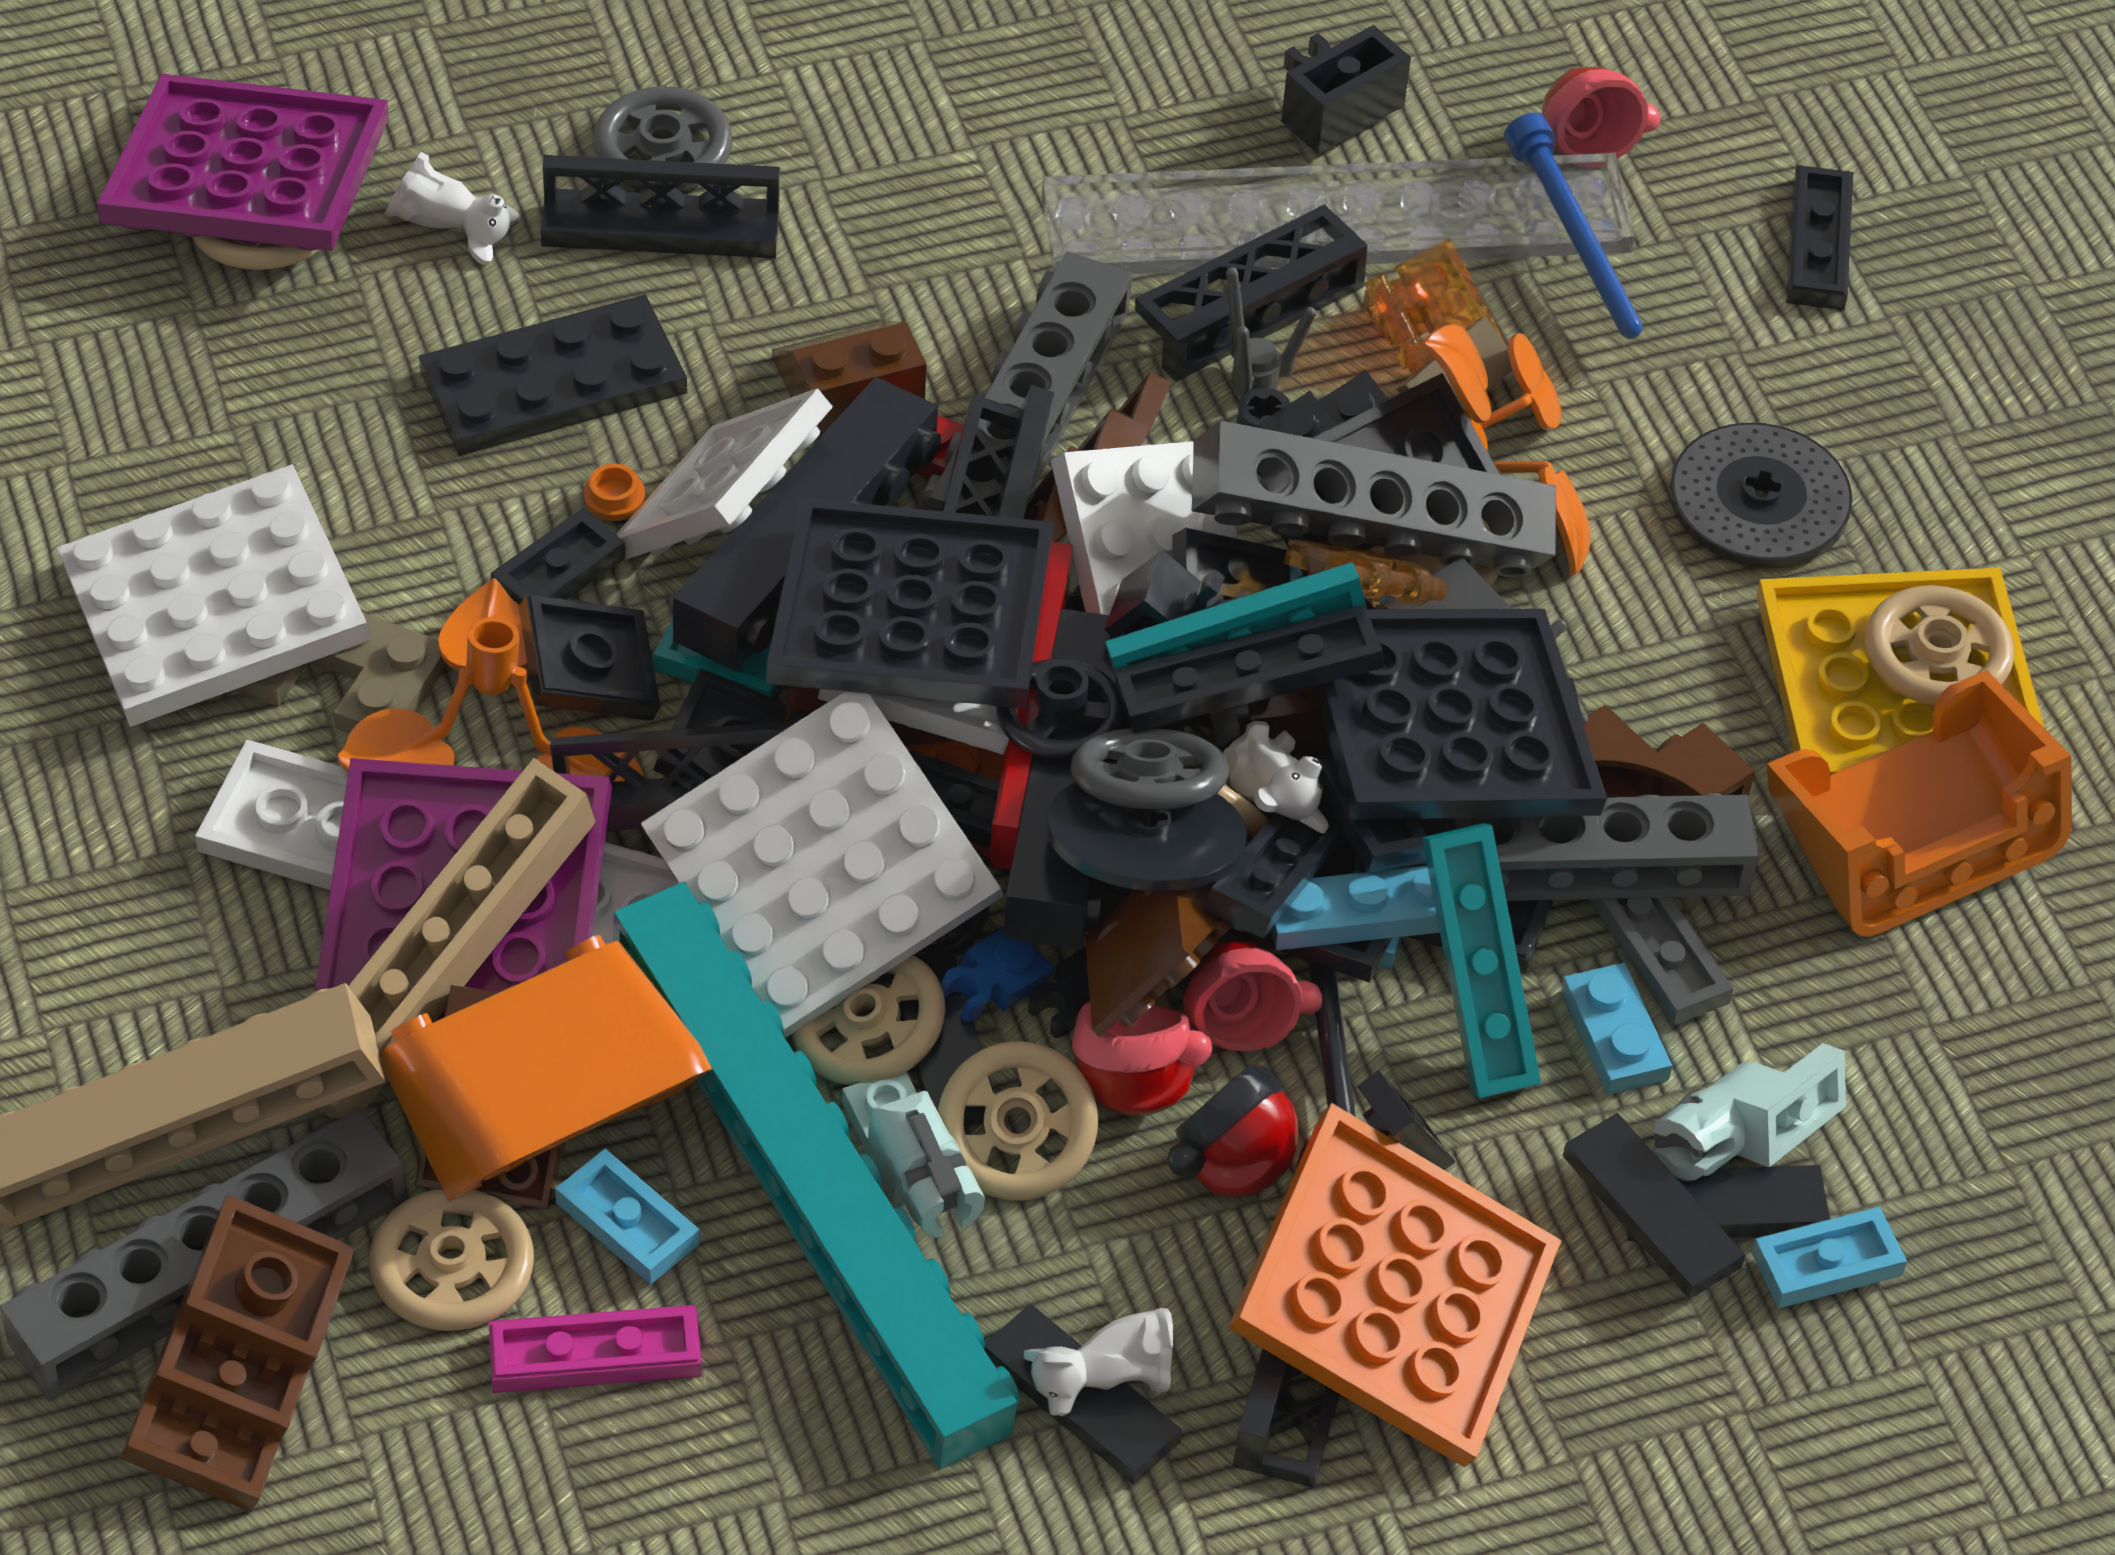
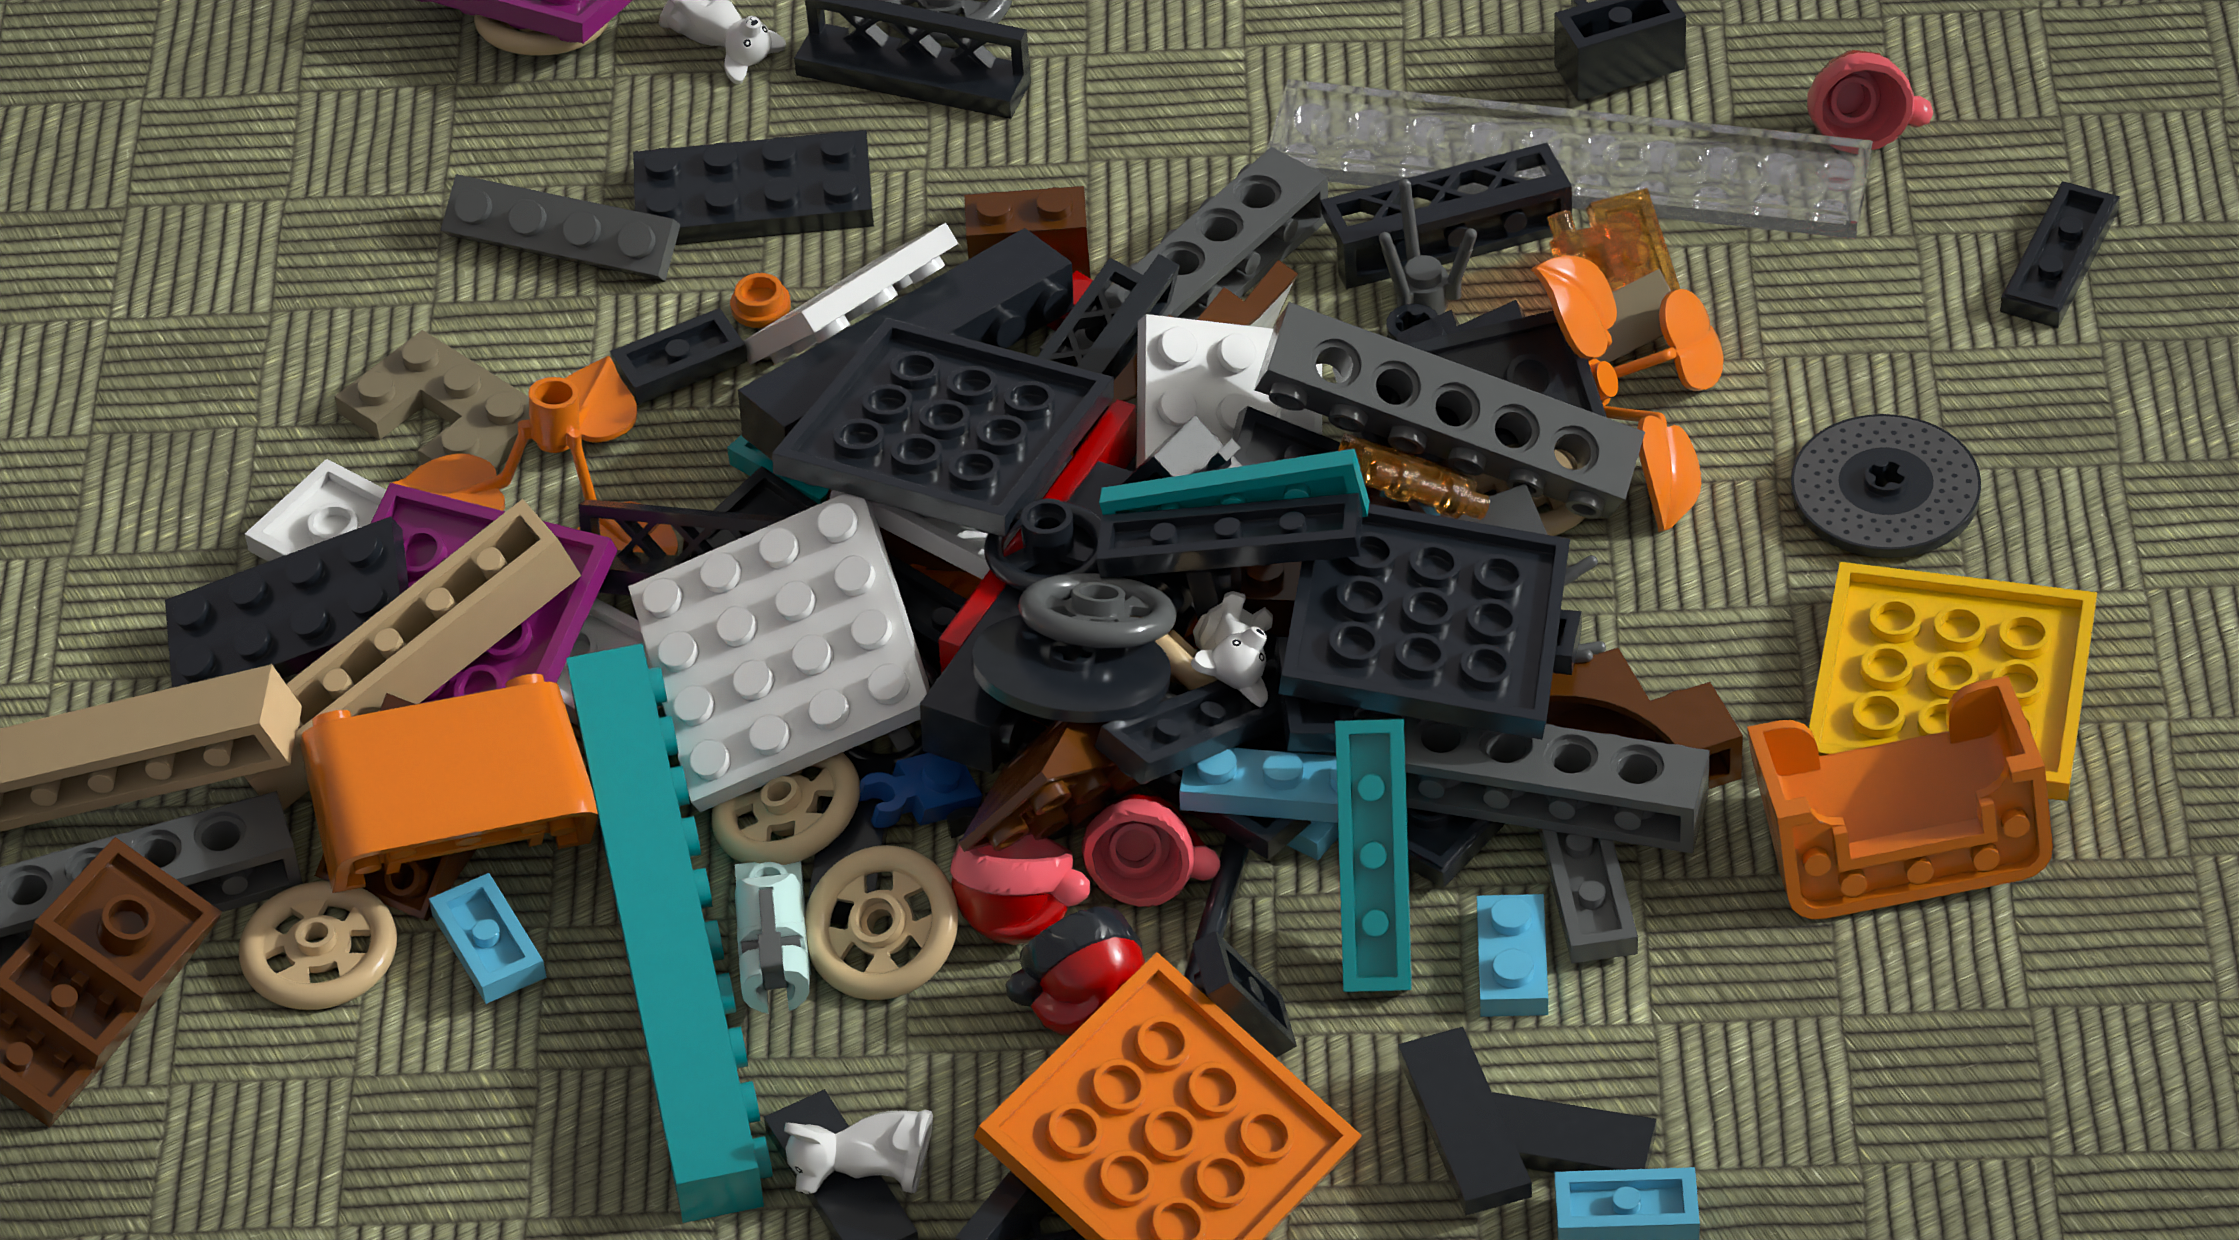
camera: 25 degrees right, 5 degrees down
(213, 594) = (351, 328): white plate -> none
(286, 917) = (286, 607): none -> black plate
(380, 448) = (560, 227): none -> dark grey plate
(589, 657) = (668, 441): black plate -> none
(594, 1348) = (411, 1049): dark pink tile -> none
(1533, 143) = (1783, 116): blue piece -> none
(1751, 1114) = (1603, 1055): light aqua plate -> none
(1936, 643) = (1990, 646): tan plate -> none

